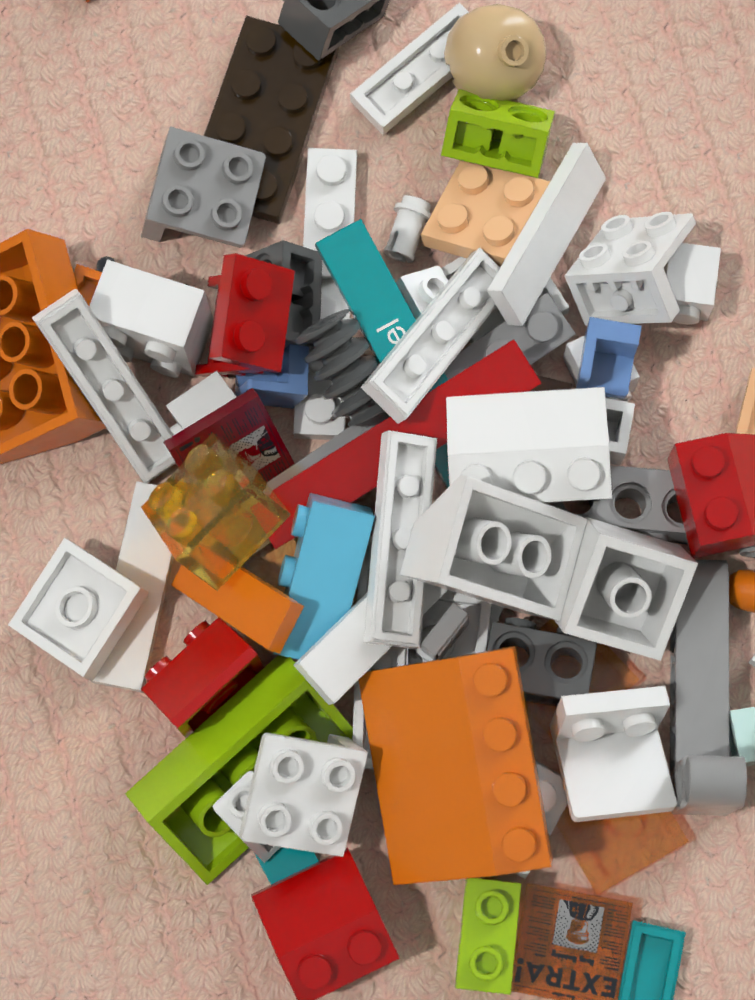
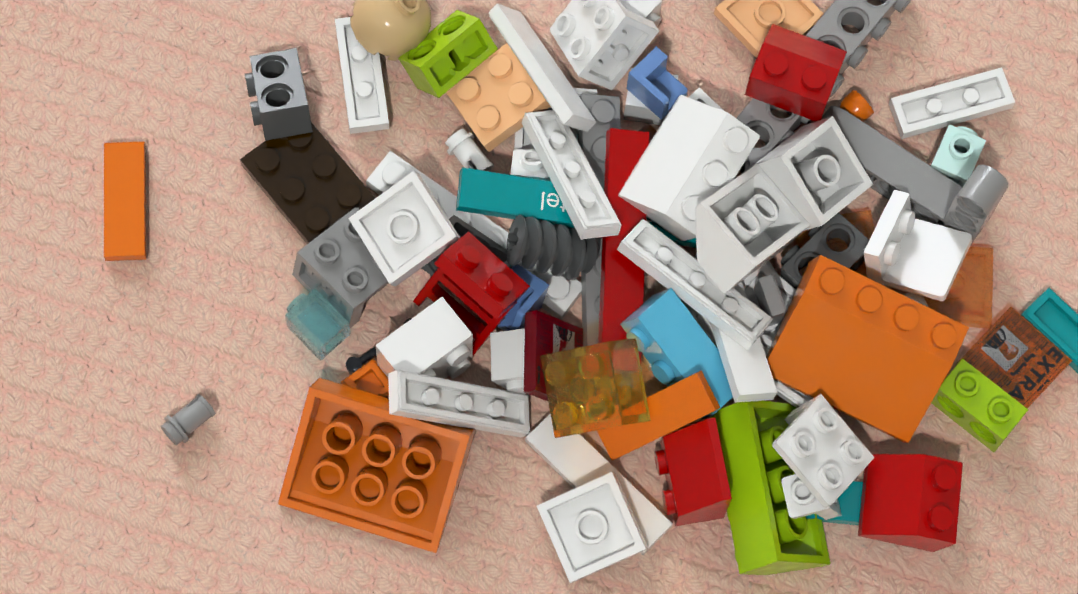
camera: 65 degrees left, 5 degrees down
(119, 200) = (316, 323): none -> clear light blue brick
(258, 207) = (404, 228): none -> white plate

